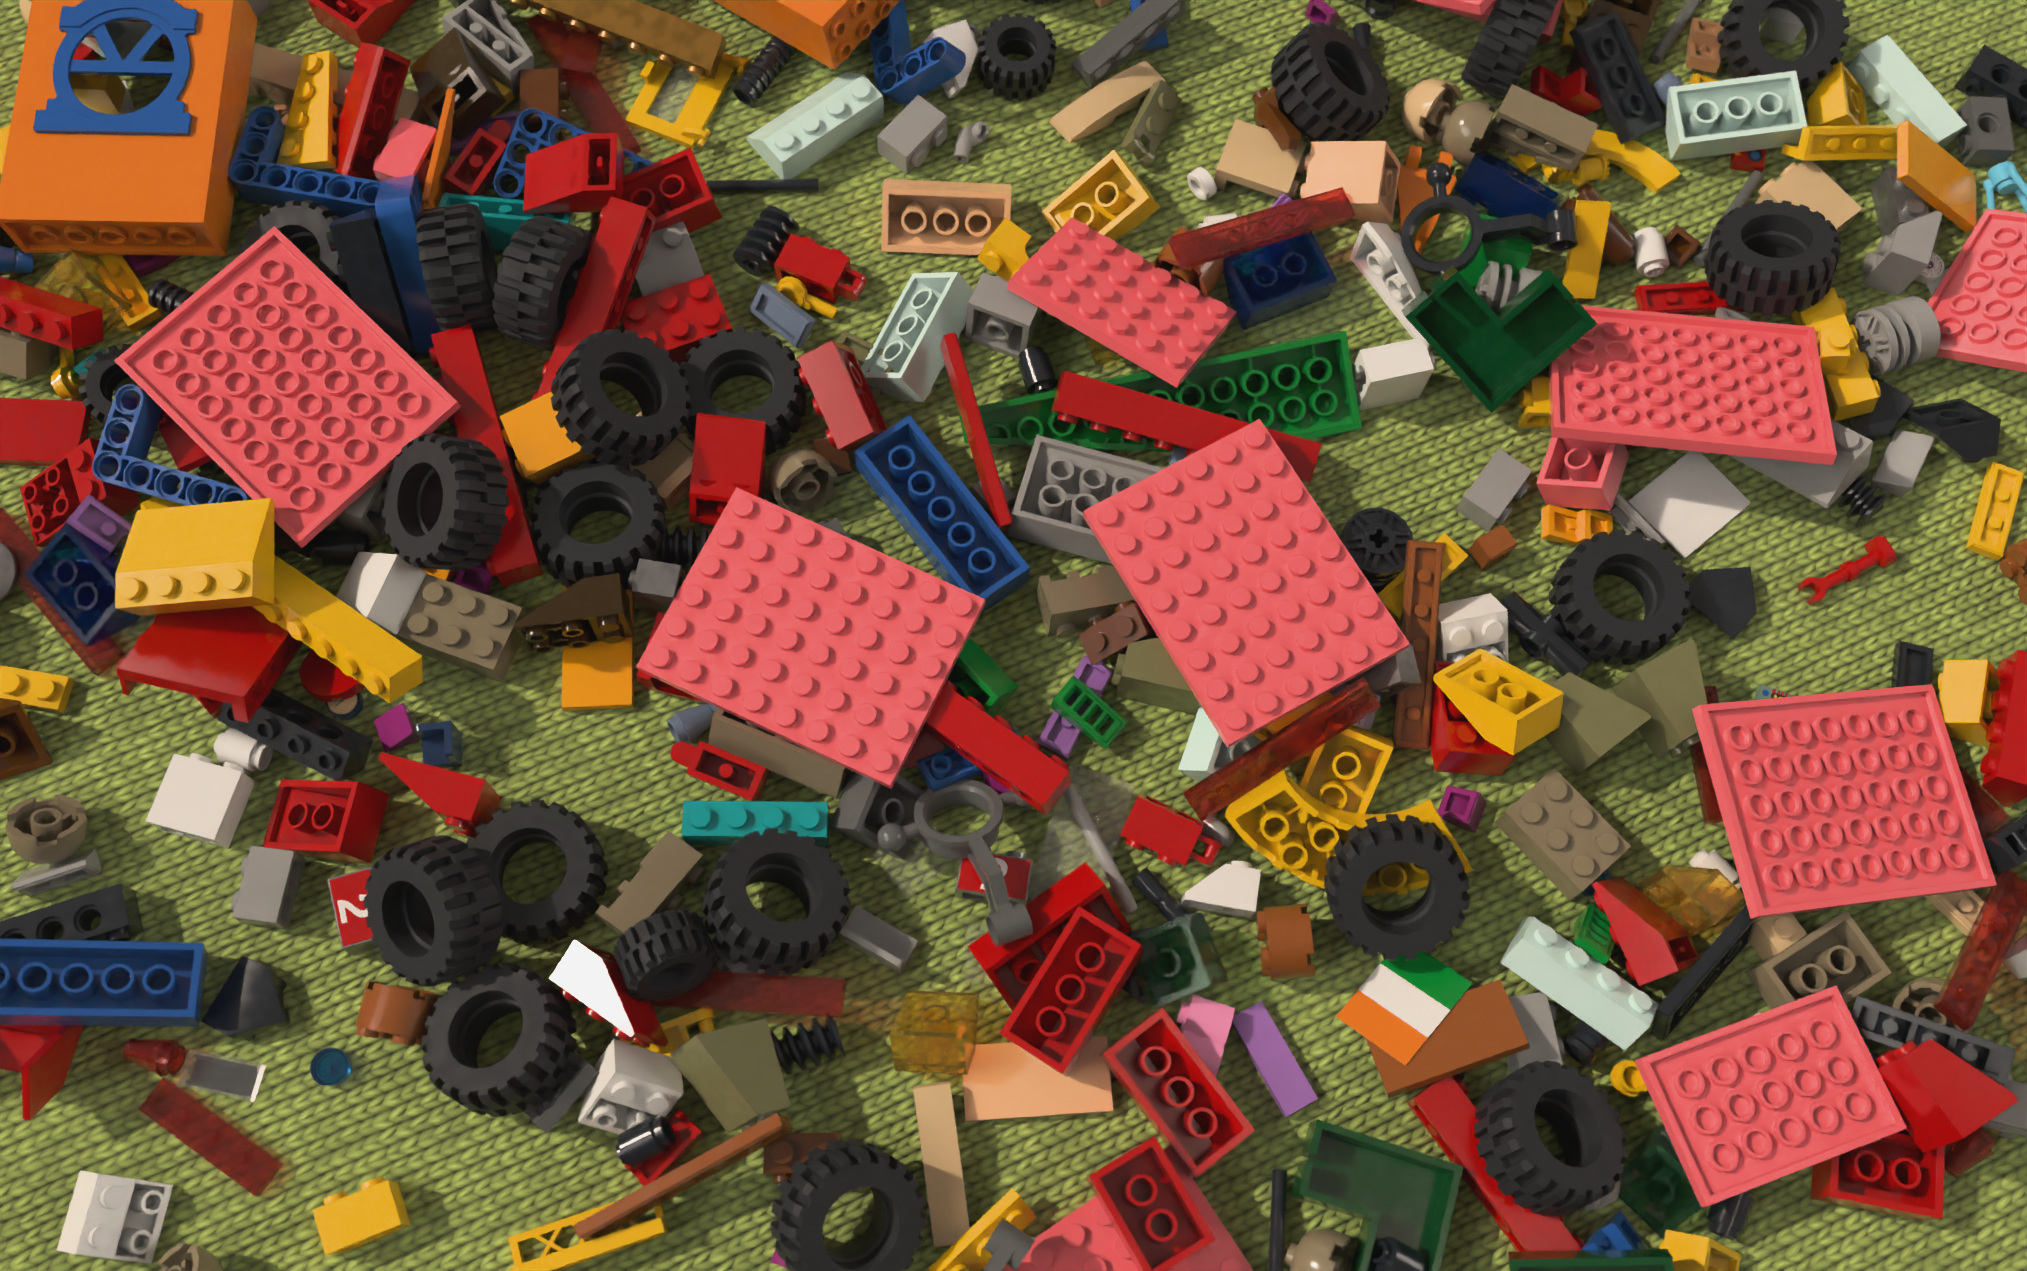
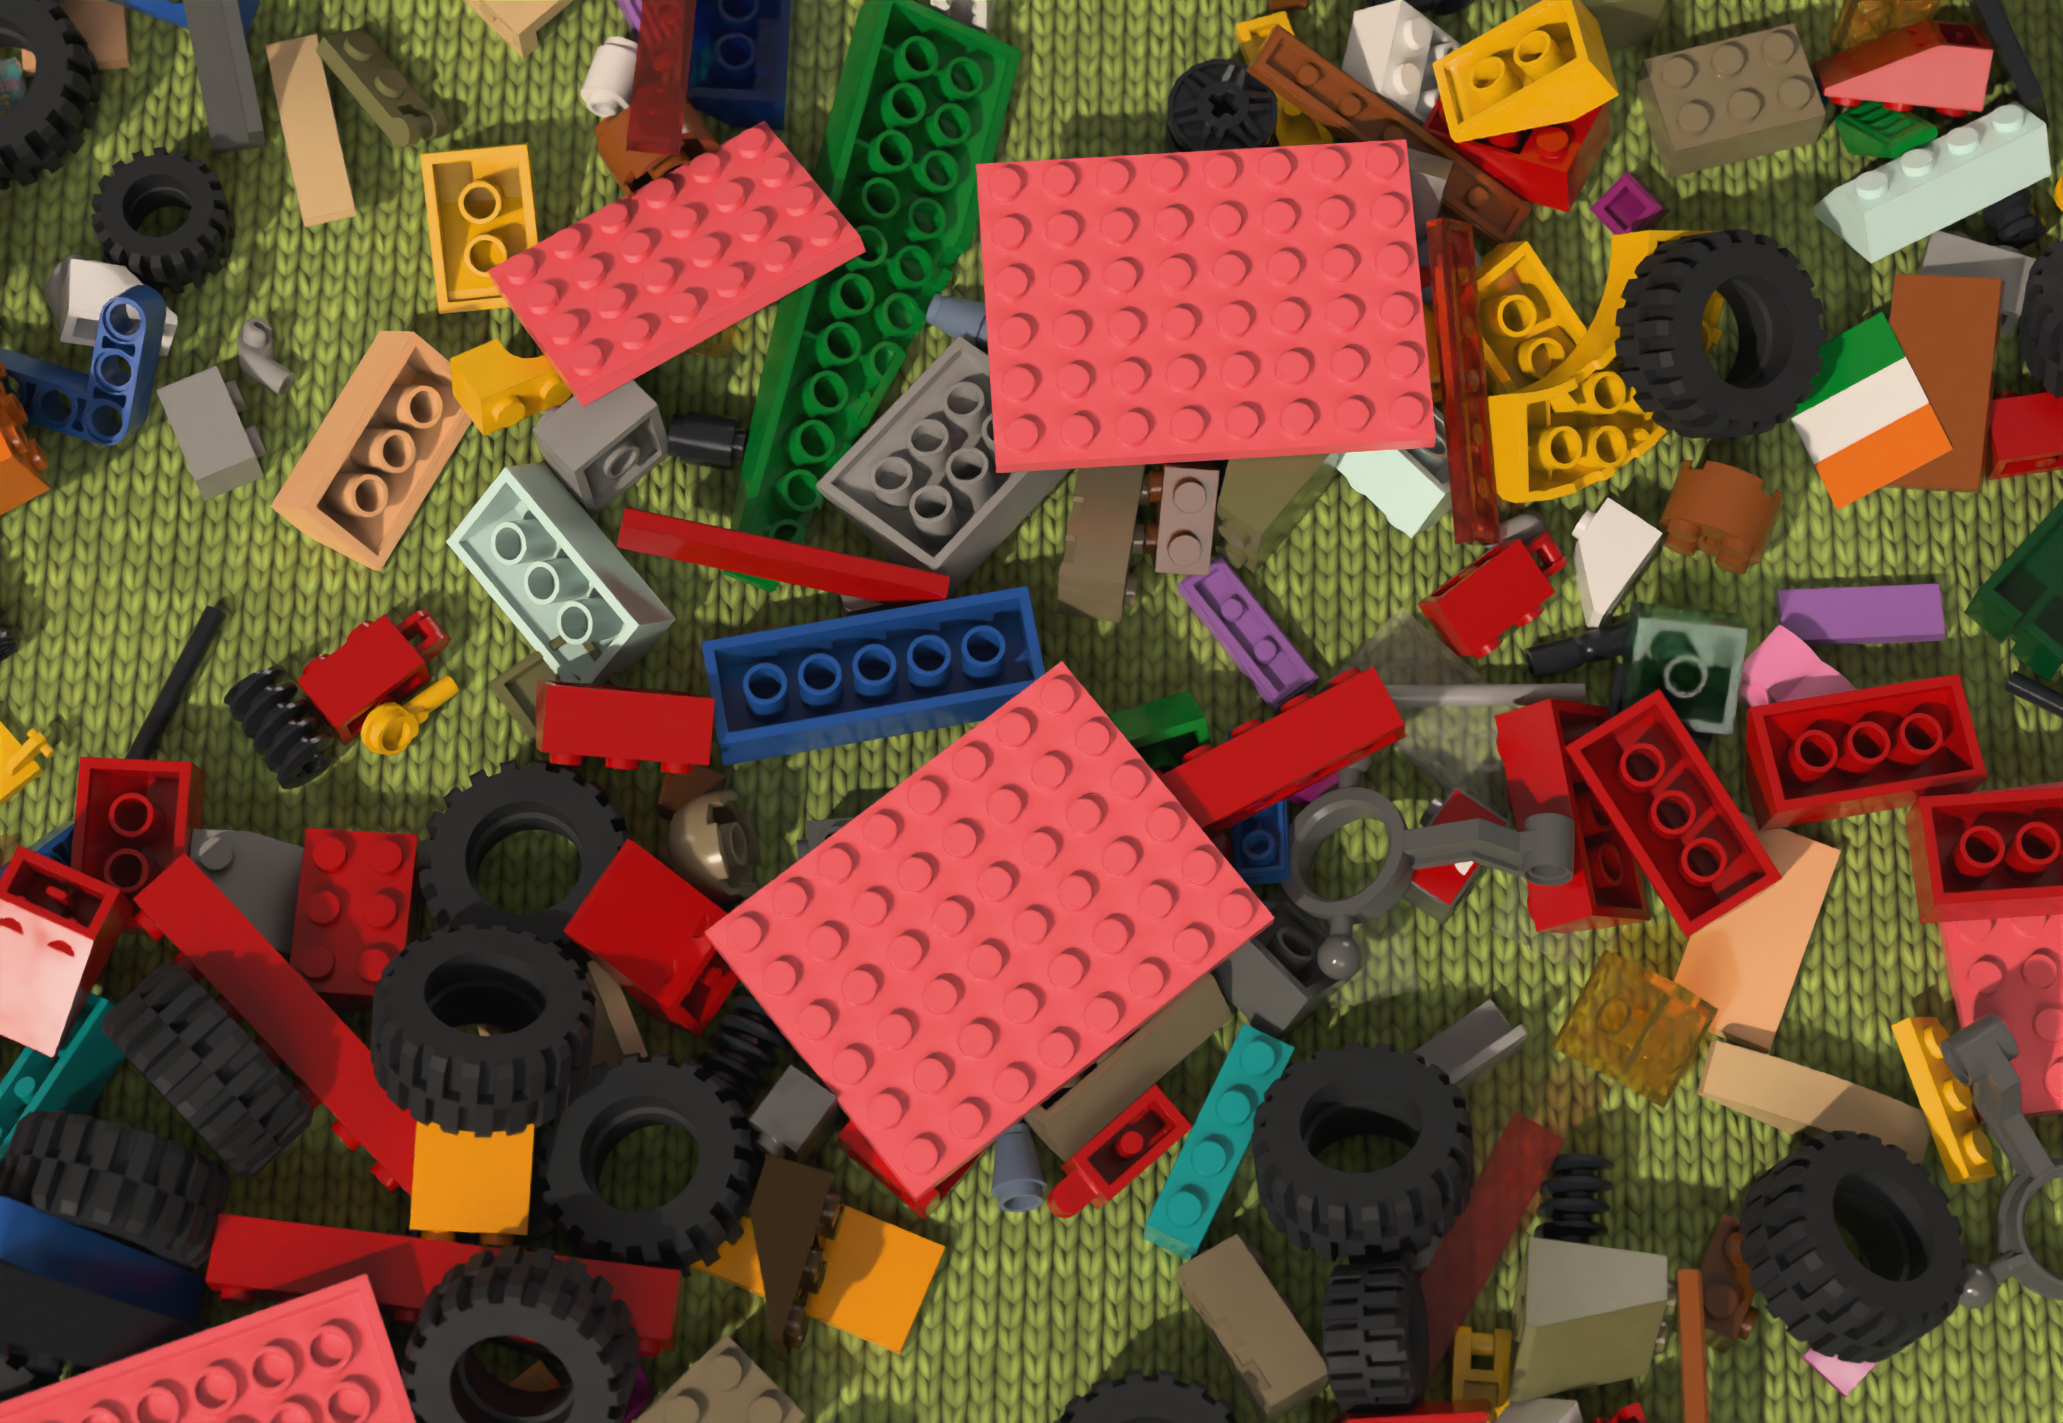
camera: 60 degrees left, 0 degrees up
(782, 315) = (419, 759): sand blue tile -> none
(818, 124) = (107, 564): light aqua slope -> none
(1081, 722) = (1247, 647): green slope -> none
(1163, 420) = (893, 299): red brick -> none
(1201, 183) = (521, 68): white tile -> none

